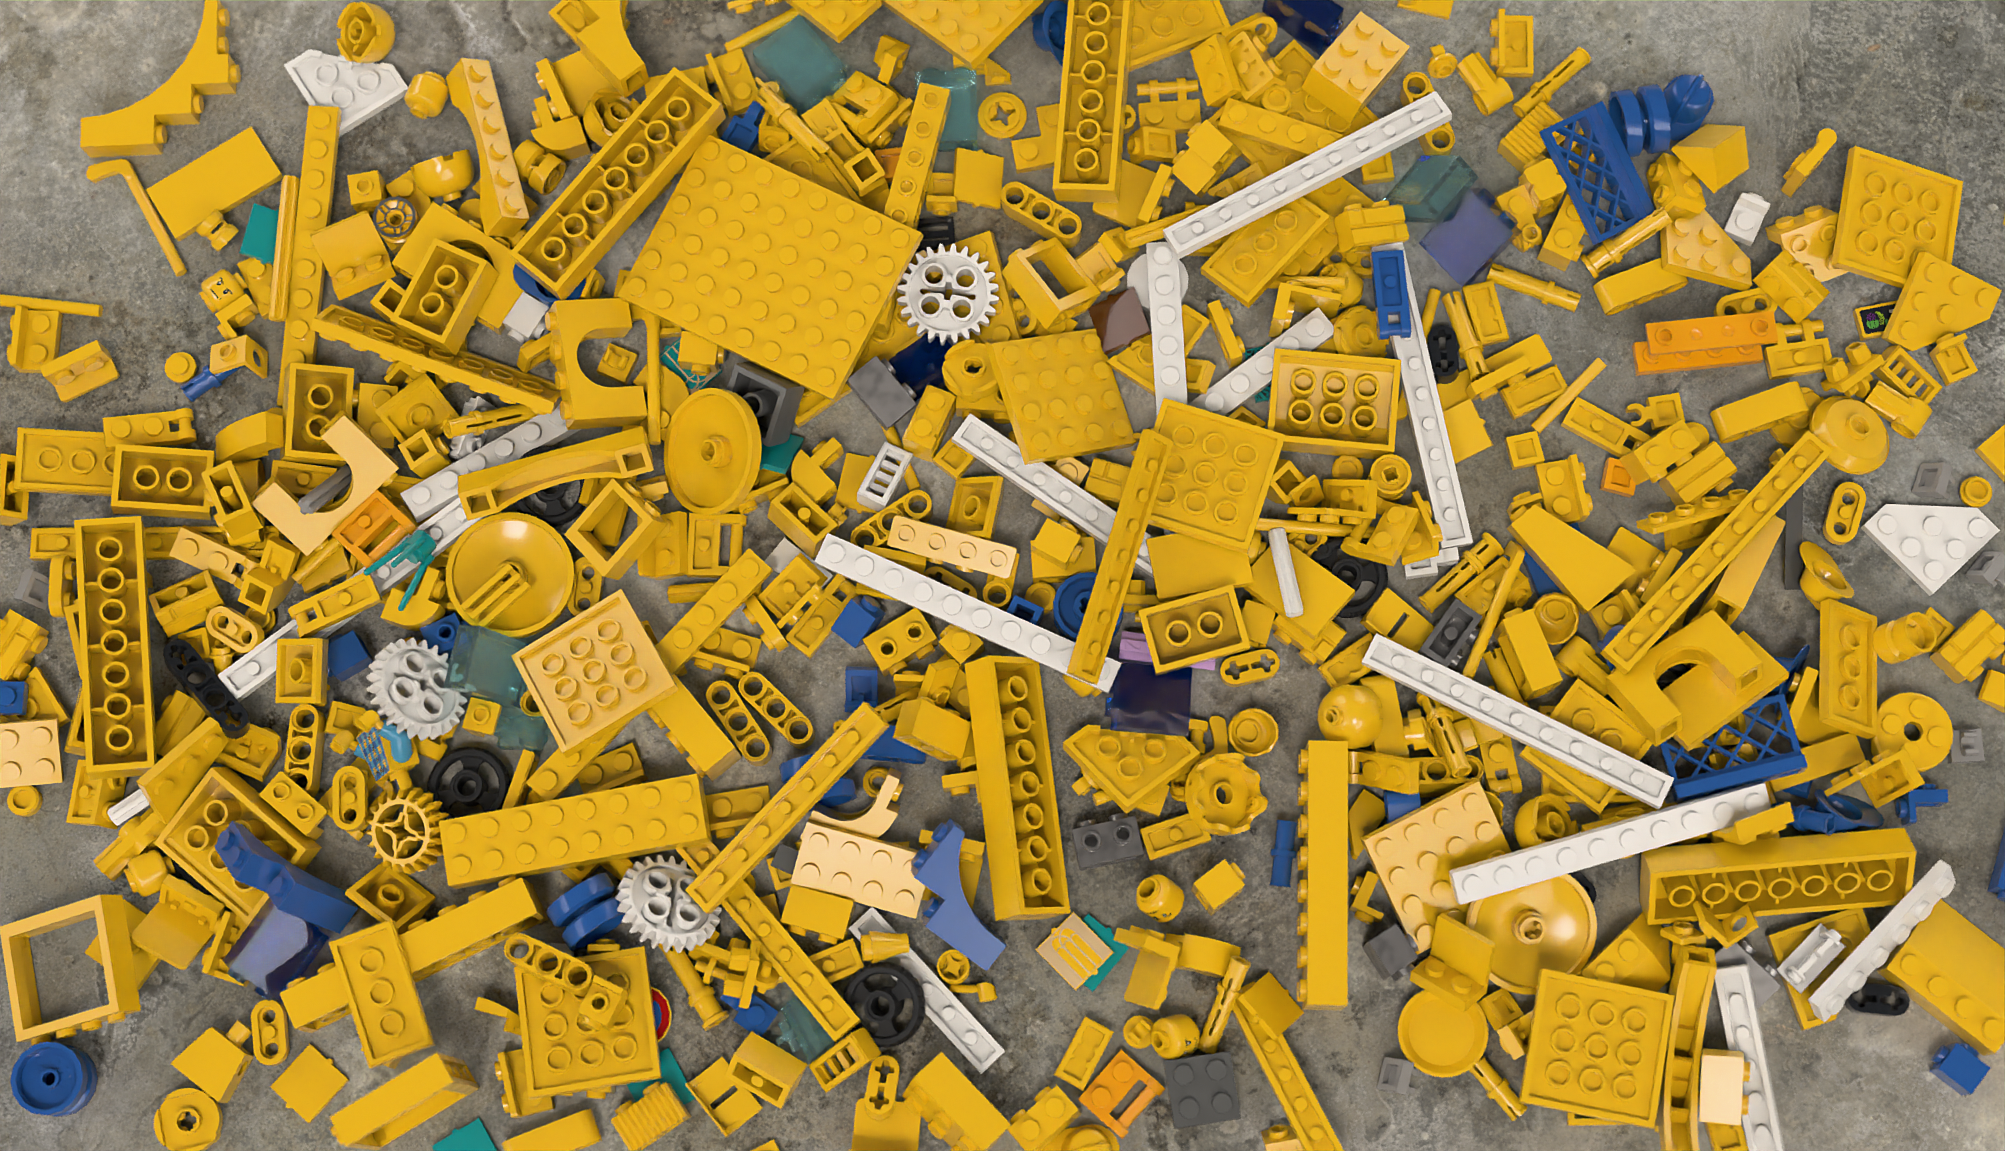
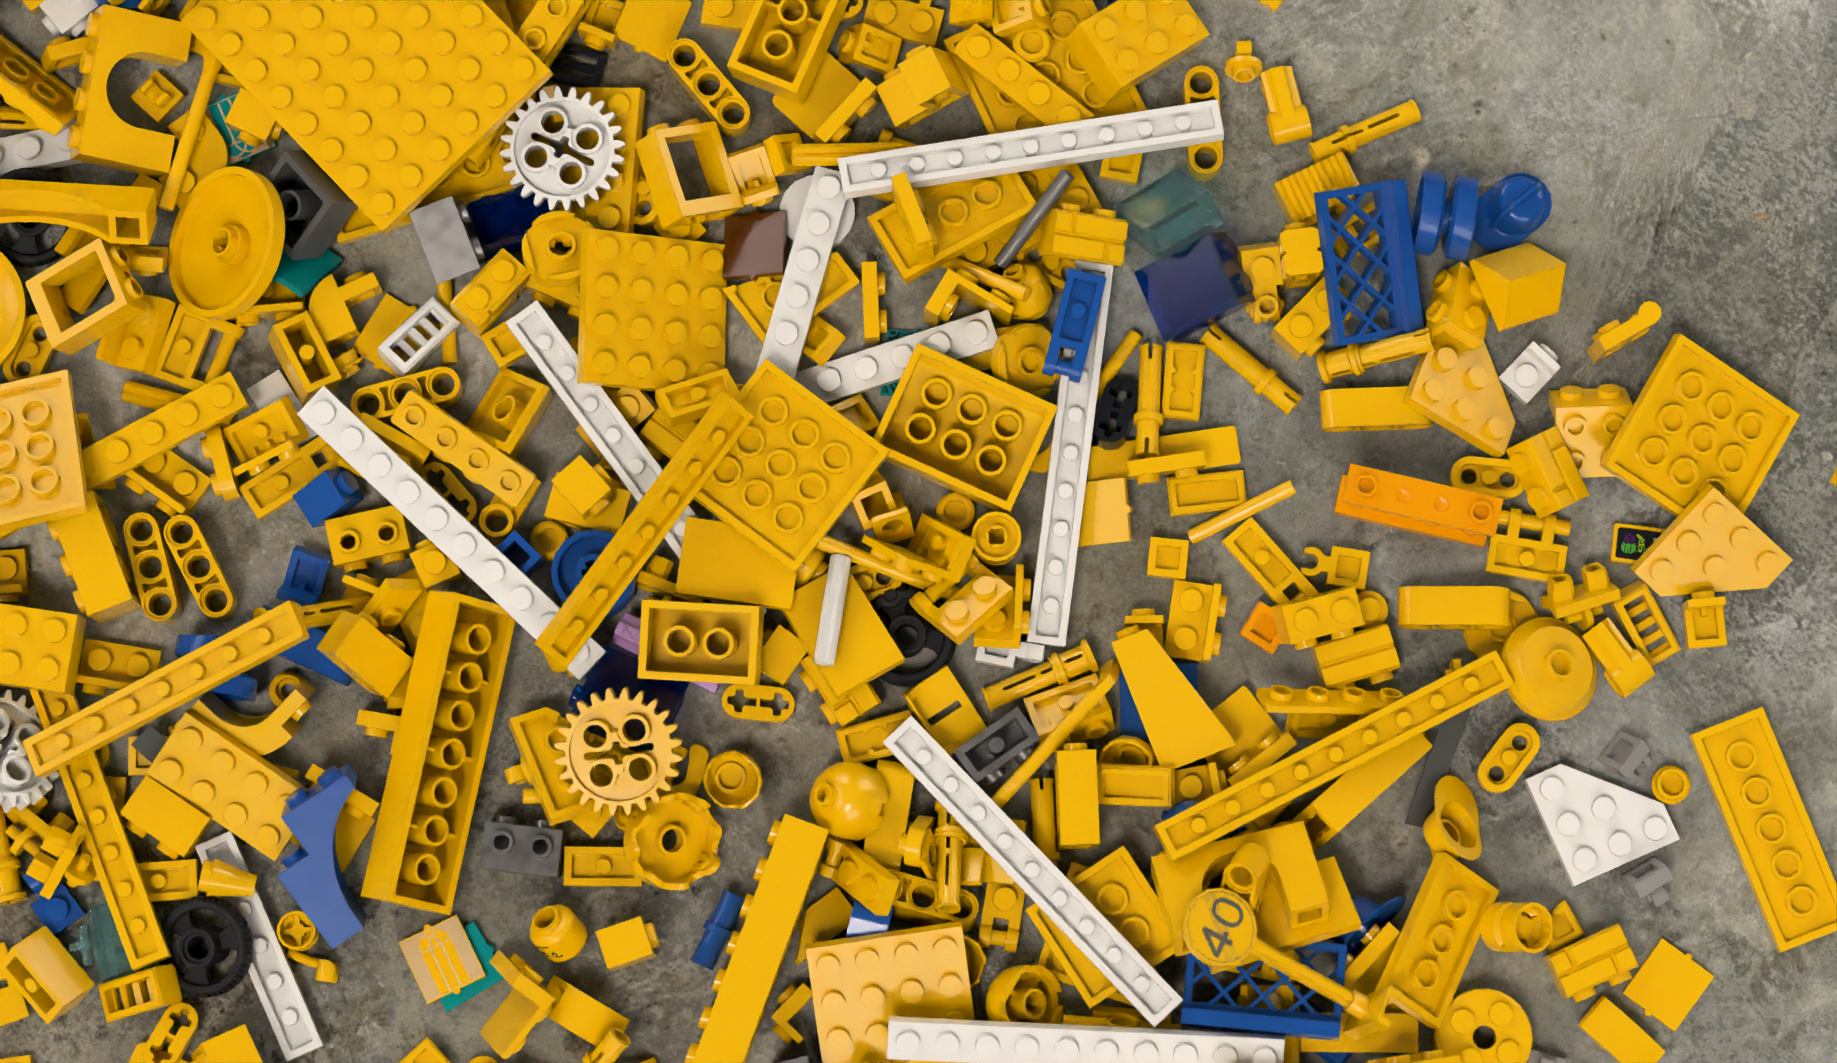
camera: 10 degrees right, 5 degrees up
(1117, 447) = (693, 397): none -> yellow plate
(1175, 762) = (612, 716): none -> yellow gear
(1239, 253) = (910, 210): none -> yellow plate
(1240, 181) = (956, 127): yellow slope -> none
(1329, 225) = (1034, 218): none -> dark grey bar
(1513, 45) = (1336, 72): yellow bracket -> none
(1572, 627) = (1136, 785): none -> yellow tile
(1579, 661) = (1136, 827): yellow piece -> none
(1687, 674) = (1248, 874): none -> yellow piece
(1691, 714) = (1223, 932): none -> yellow piece

